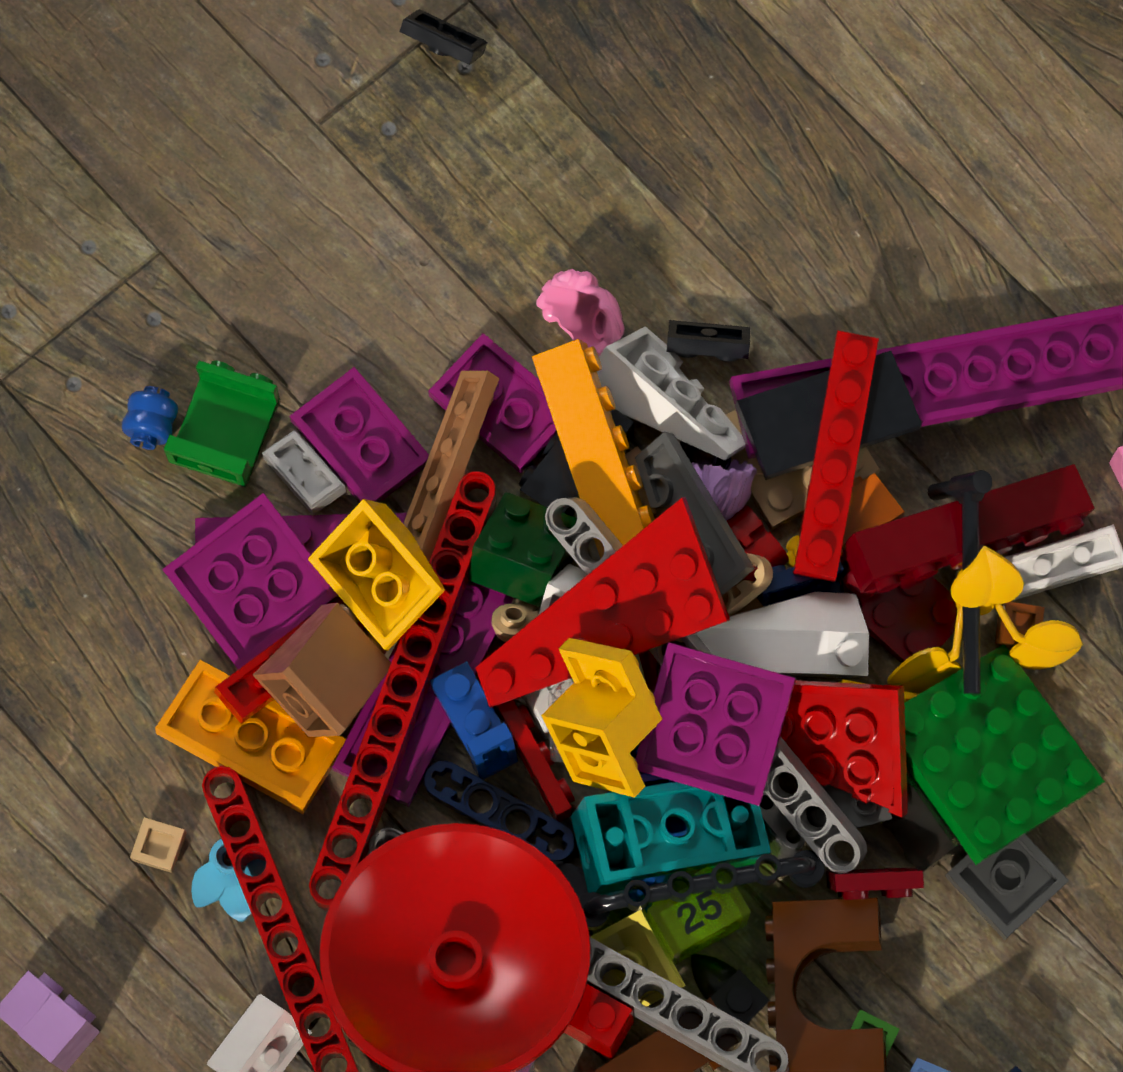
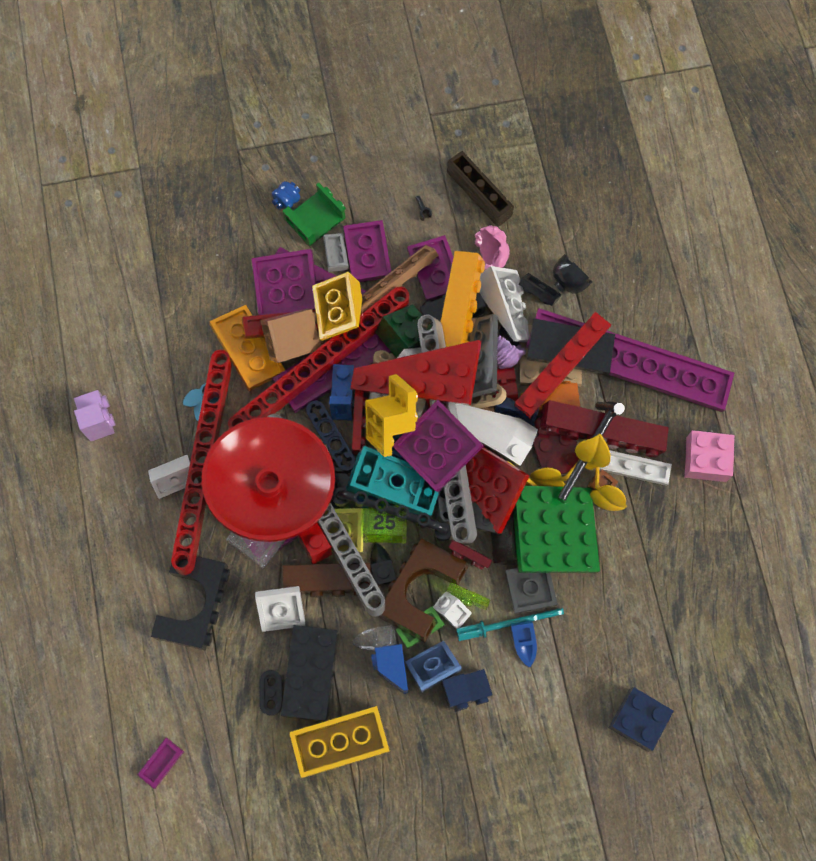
camera: 30 degrees right, 0 degrees up
(158, 845) = (183, 370): tan plate -> none
(411, 305) = (423, 209): none -> black hand
(443, 37) = (503, 105): black plate -> none
(495, 214) = (480, 188): none -> dark brown brick
(748, 288) = (570, 276): none -> black cylinder
(897, 995) = (452, 609): none -> white bracket
(911, 958) = (468, 597): none -> clear neon green plate
(966, 1000) = (480, 629): none -> teal piece
(1052, 976) = (525, 641): none -> blue plate

